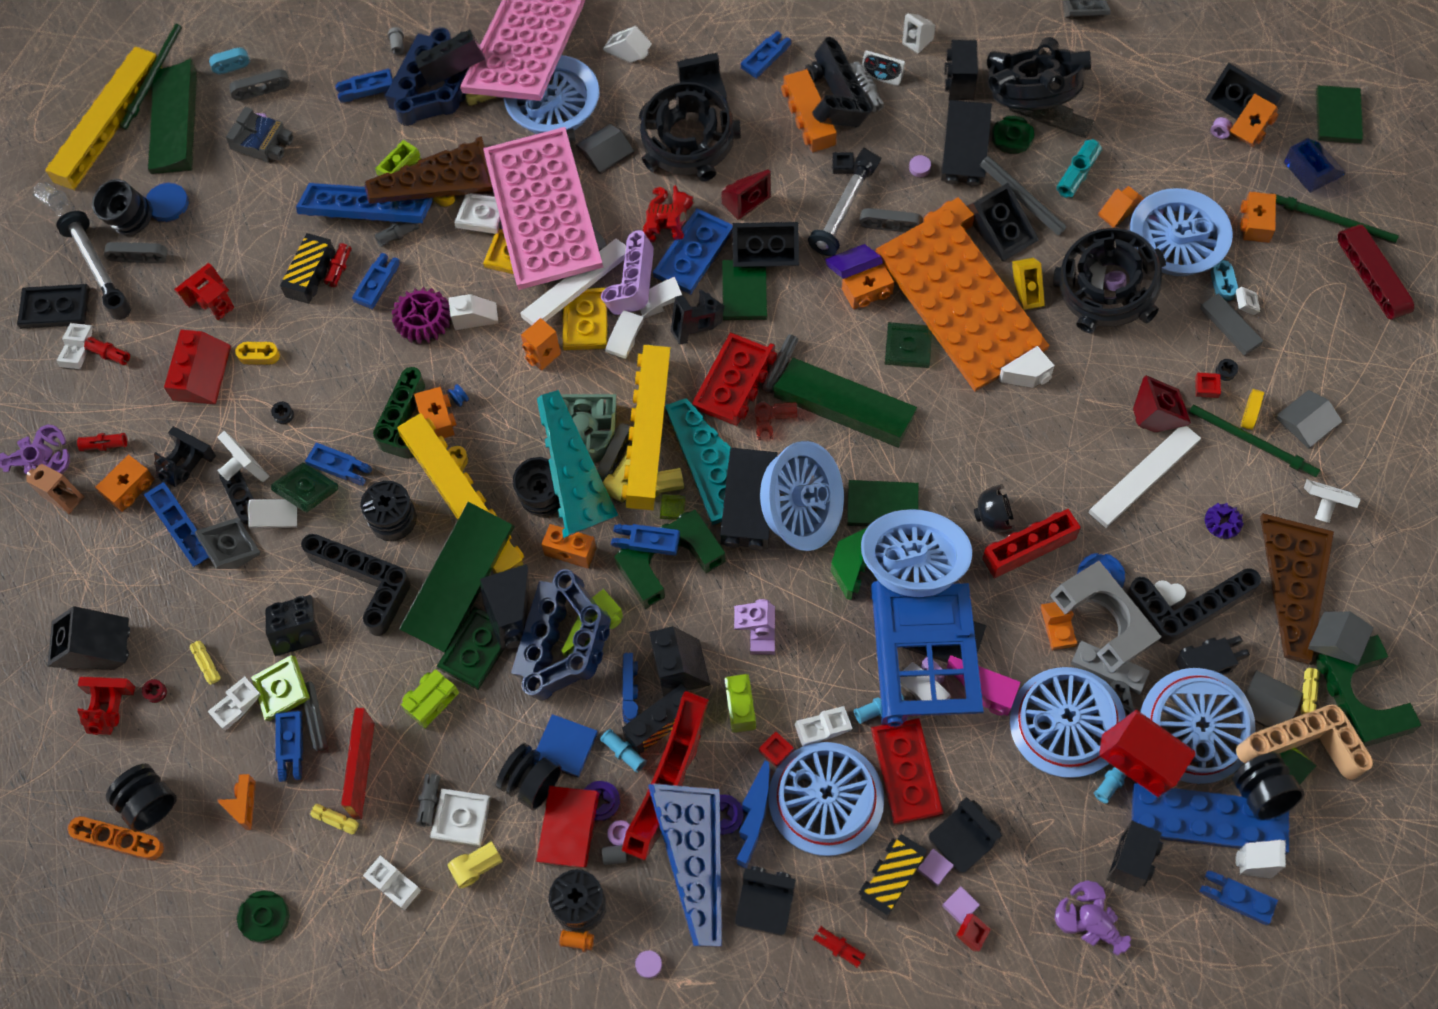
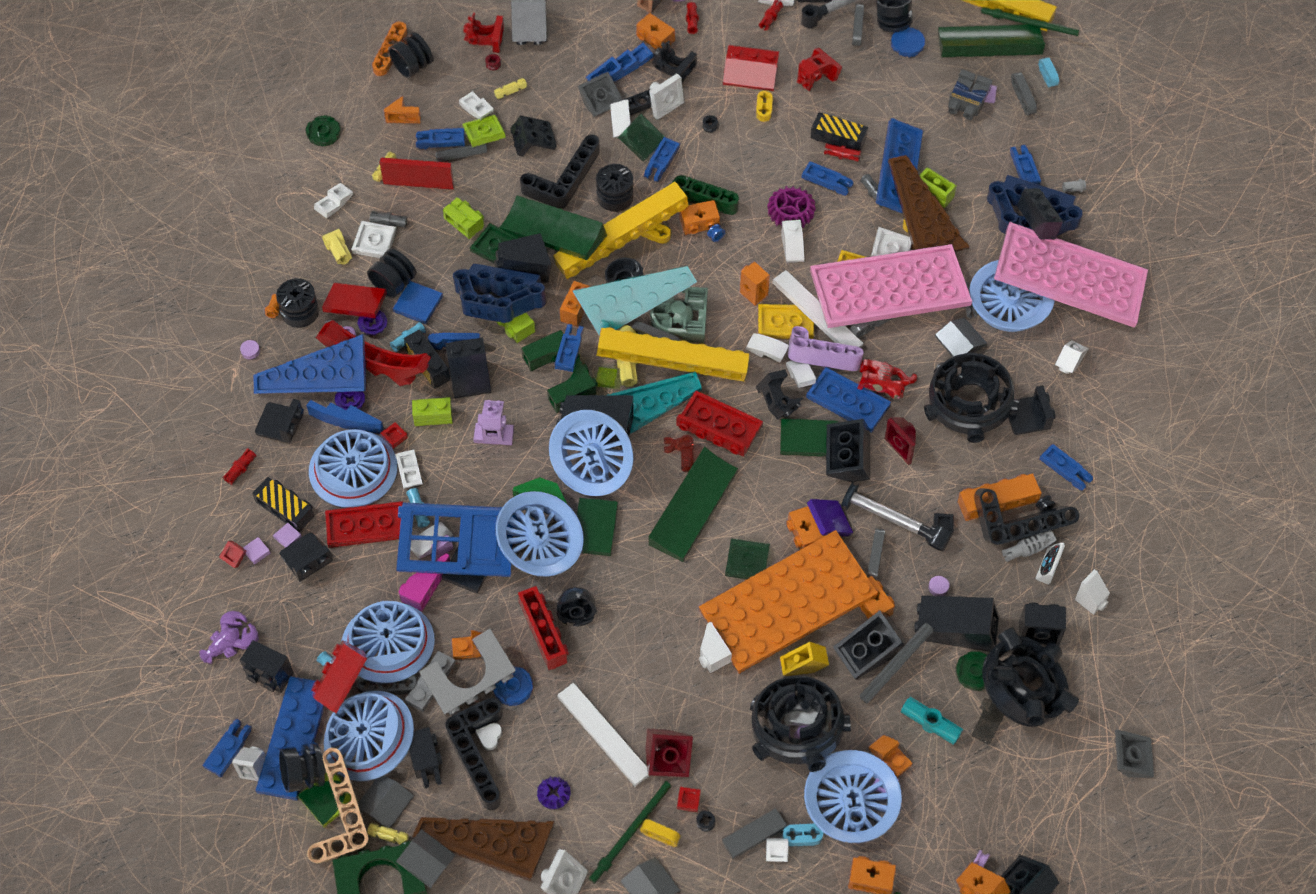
camera: 90 degrees right, 5 degrees down
(779, 363) = (735, 460): dark grey axle -> none

